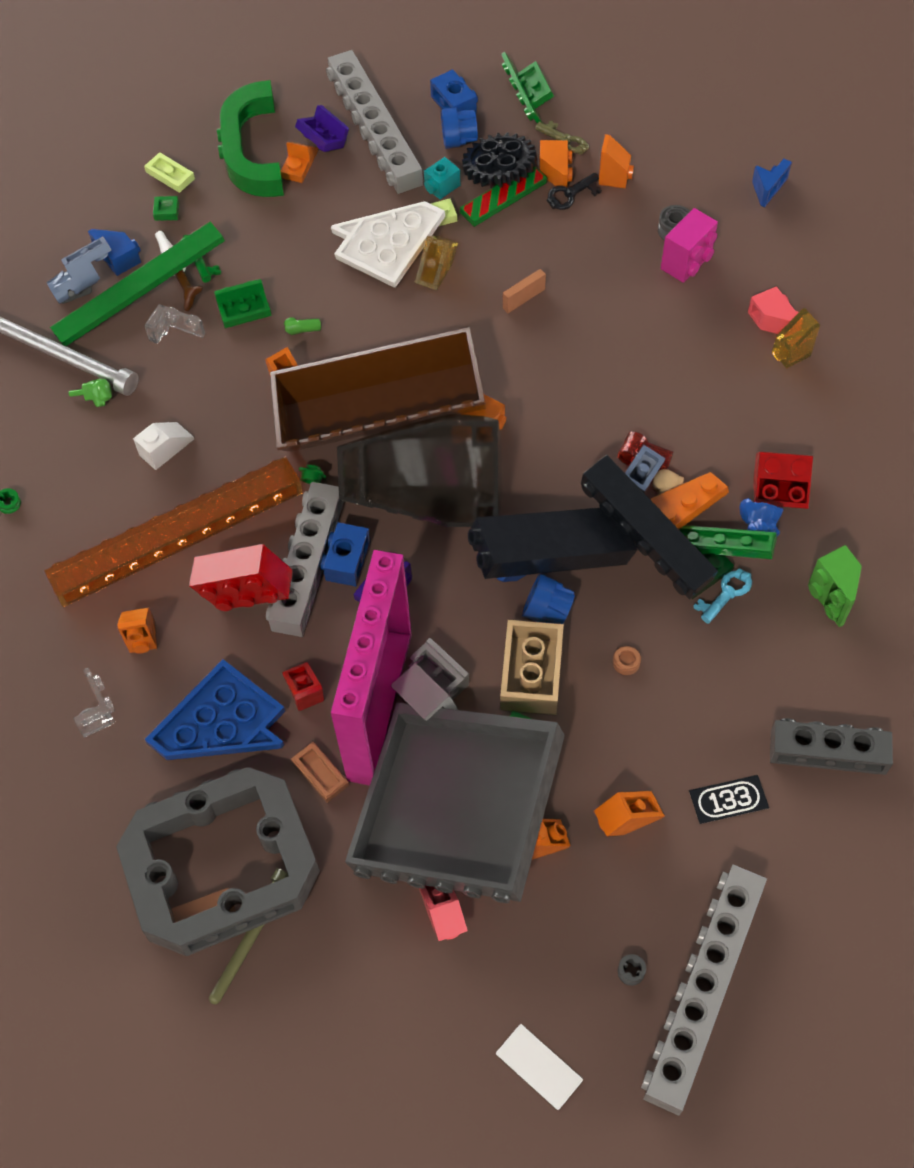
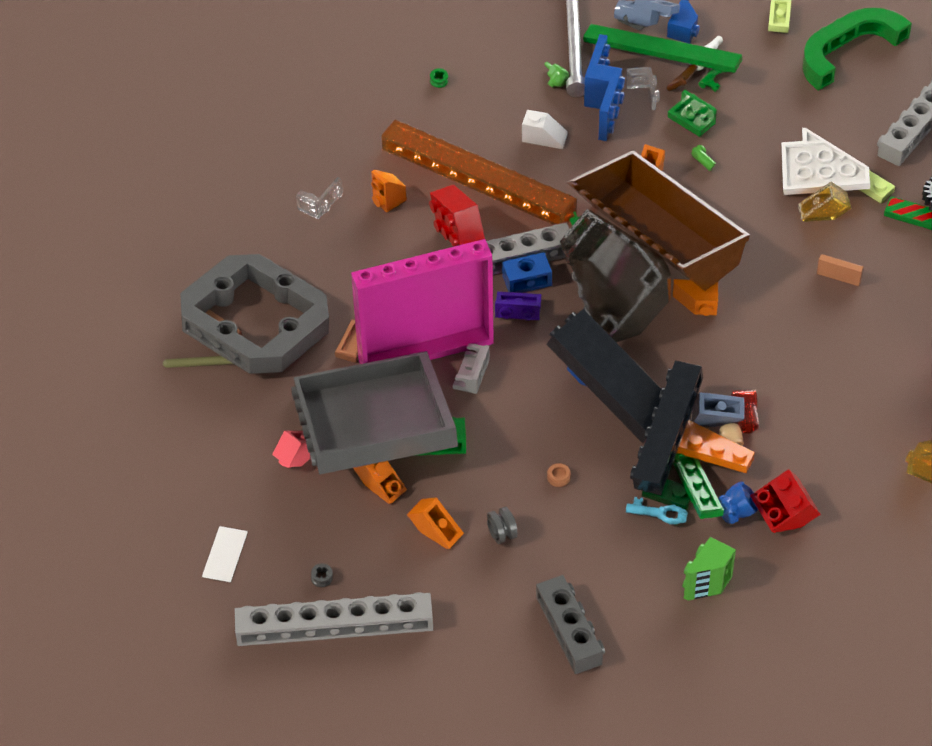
camera: 60 degrees right, 10 degrees down
(154, 357) = (604, 87): none -> blue bracket
(166, 208) = (745, 30): green plate -> none
(219, 718) = (340, 257): blue wing -> none
(298, 161) = (859, 81): orange slope -> none
(323, 130) = (894, 80): dark purple bracket -> none
(422, 692) = (444, 359): light grey panel -> none
(442, 178) = (908, 171): teal brick -> none
(531, 667) = (508, 415): tan brick -> none
(548, 601) = (567, 400): blue piece -> none
(672, 746) = (502, 525): none -> dark grey wheel
(728, 799) = (489, 583): black sticker -> none

